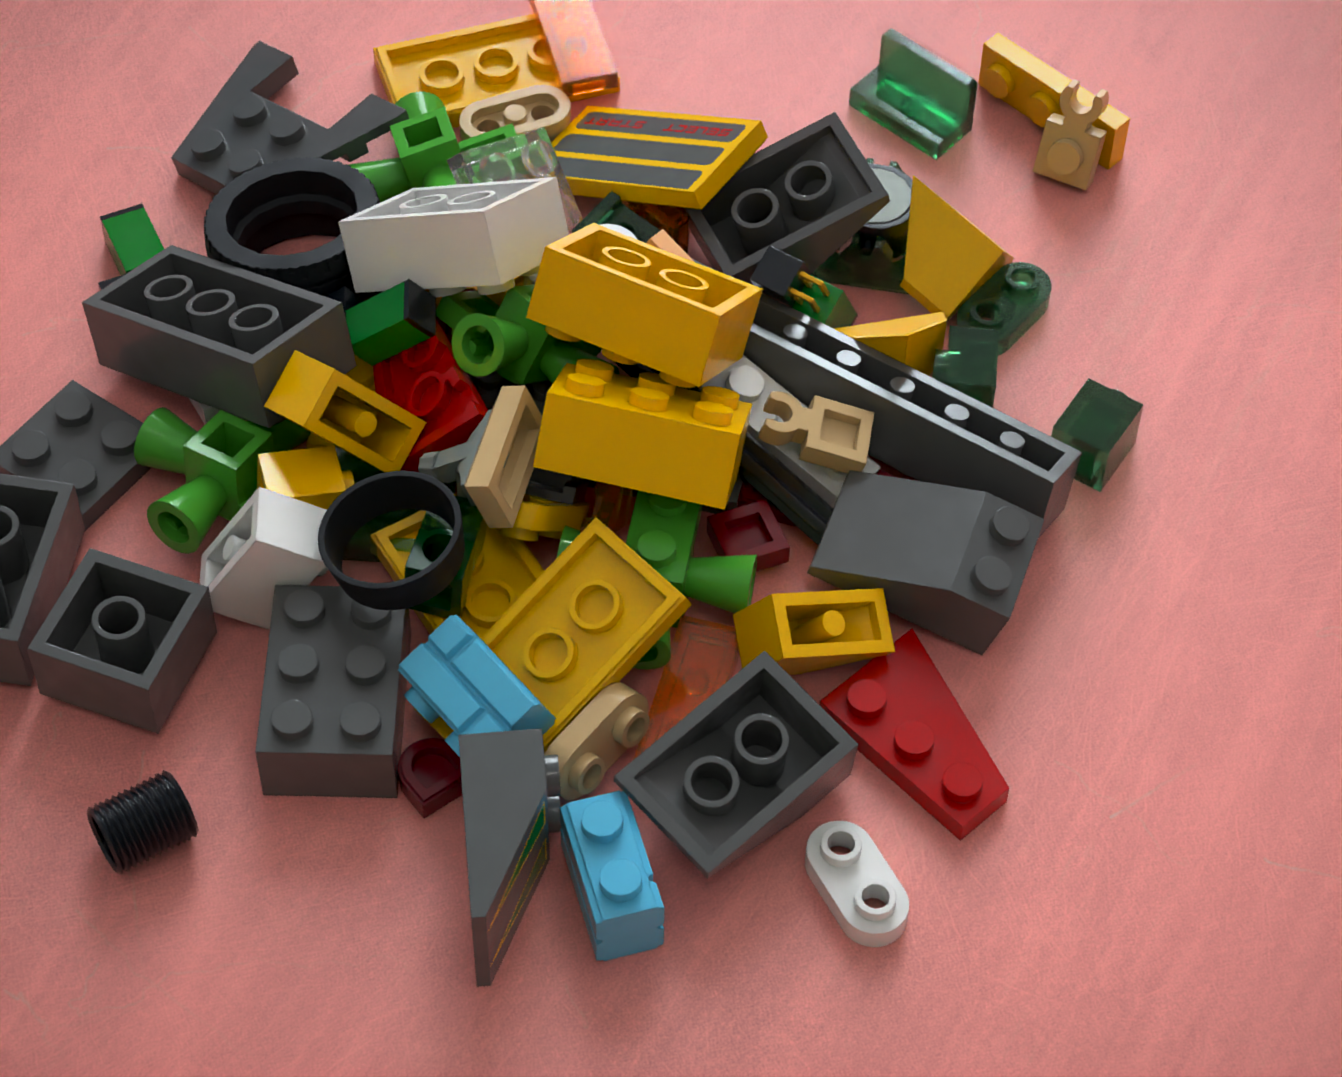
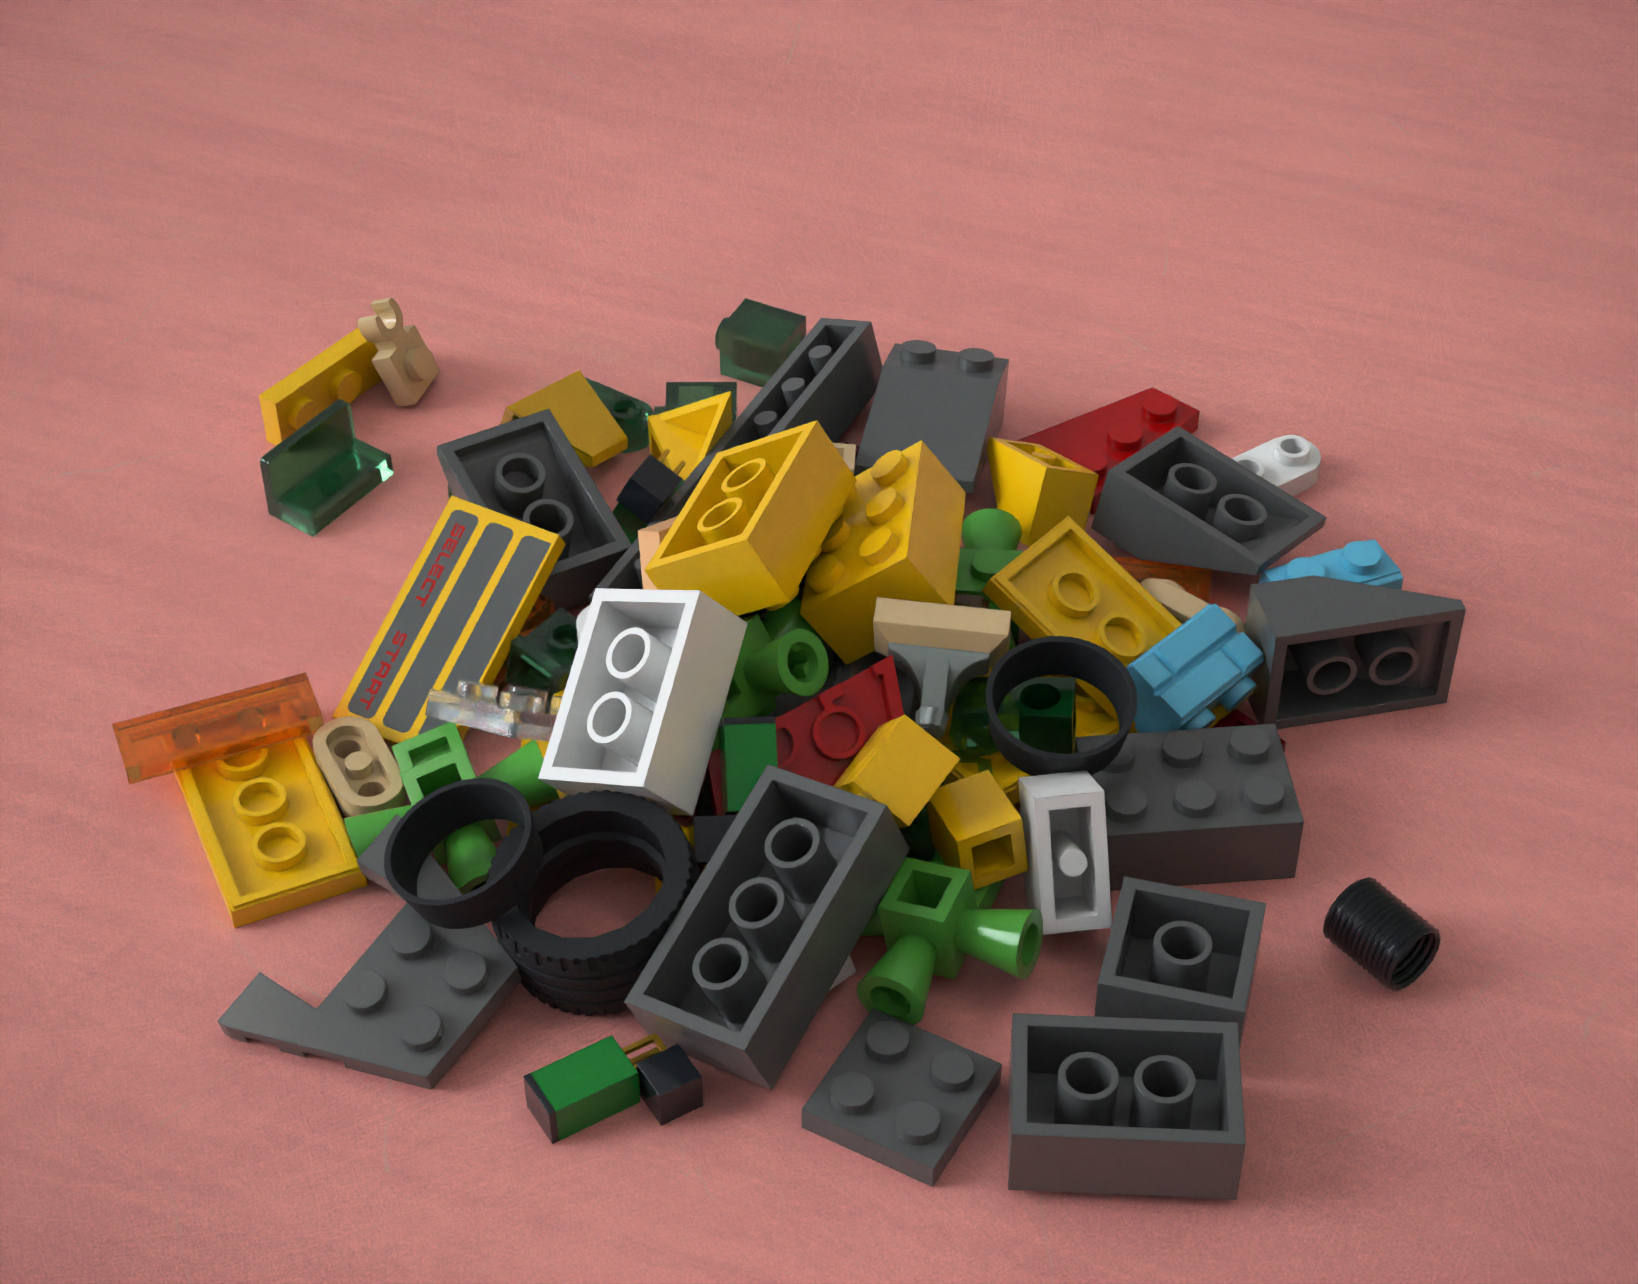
camera: 95 degrees left, 10 degrees down
(320, 107) = (441, 815): none -> black tyre

